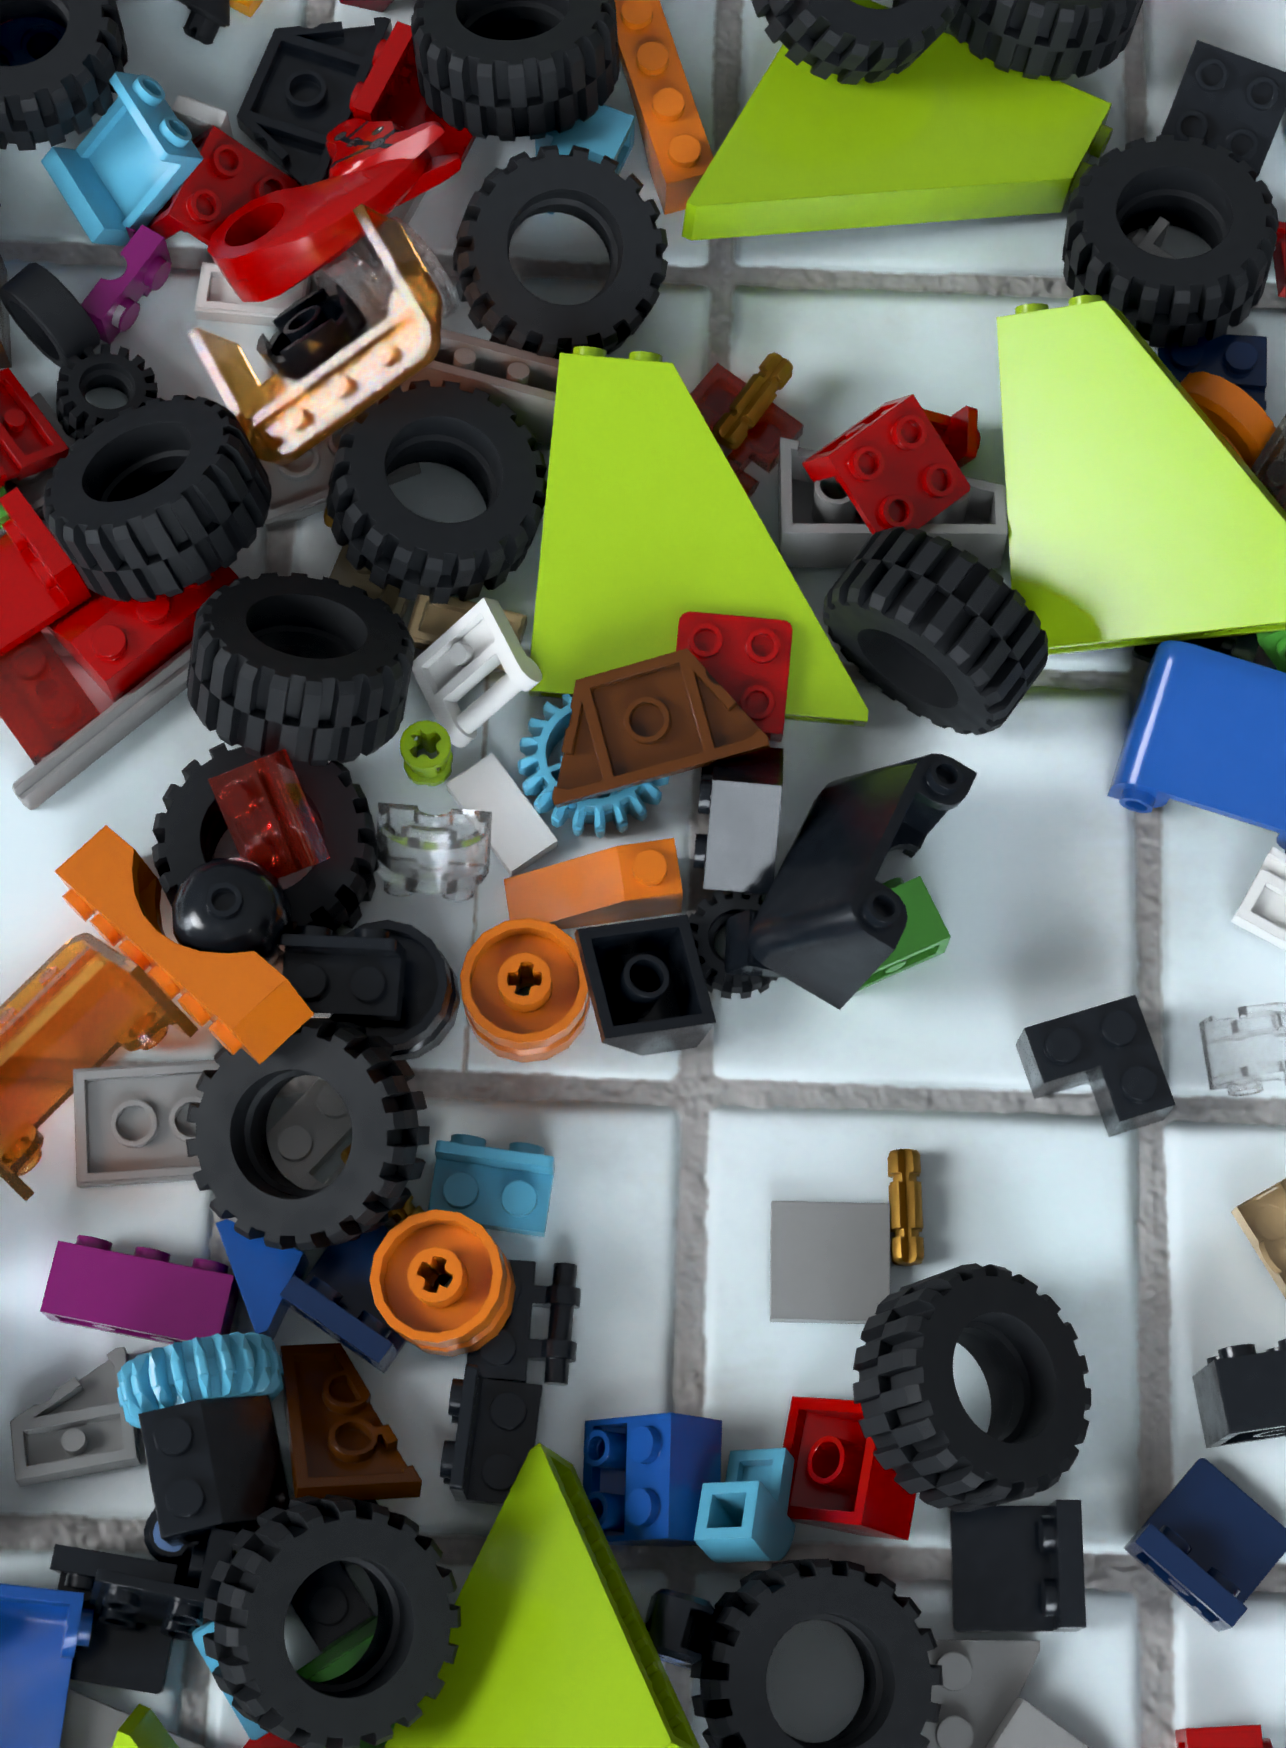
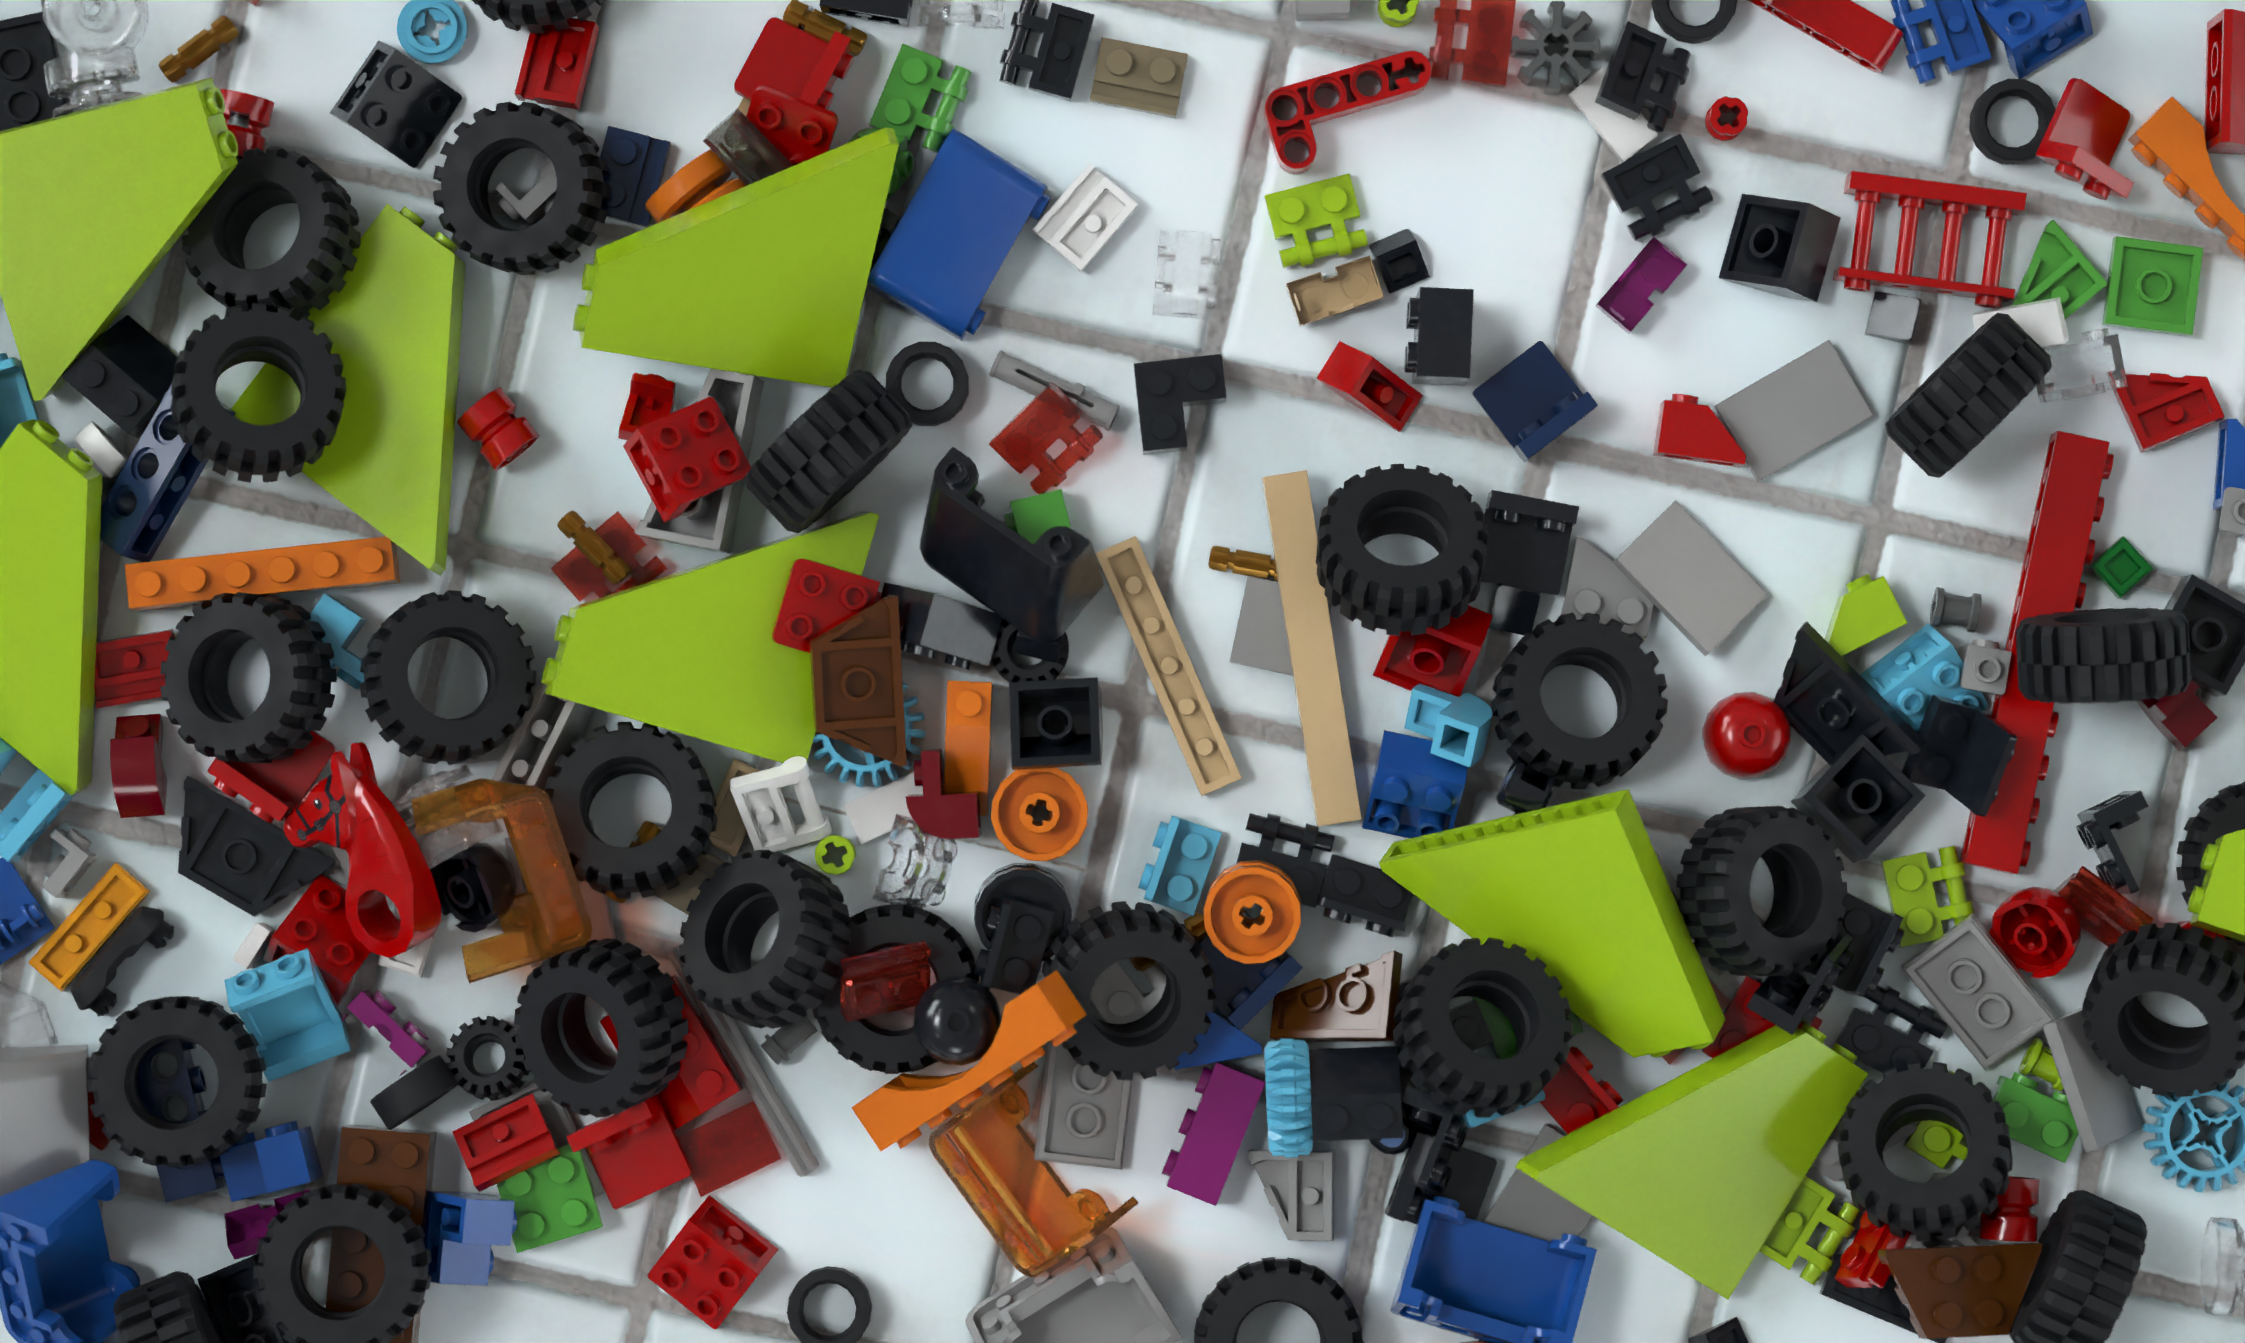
camera: 80 degrees left, 15 degrees up
(181, 737) = (787, 1039): none -> dark grey pin
(506, 856) = (940, 813): none -> dark red brick
(748, 1123) = (1168, 666): none -> tan plate
(804, 1303) = (1311, 649): none -> tan tile
(878, 267) = (498, 429): none -> red wheel
(923, 1570) = (1514, 609): none -> black slope
(1020, 897) = (1036, 428): none -> clear red plate
(1054, 717) = (950, 360): none -> black tyre
(1069, 936) = (1035, 380): none -> light grey pin
(1177, 1316) = (1369, 386): none -> red slope

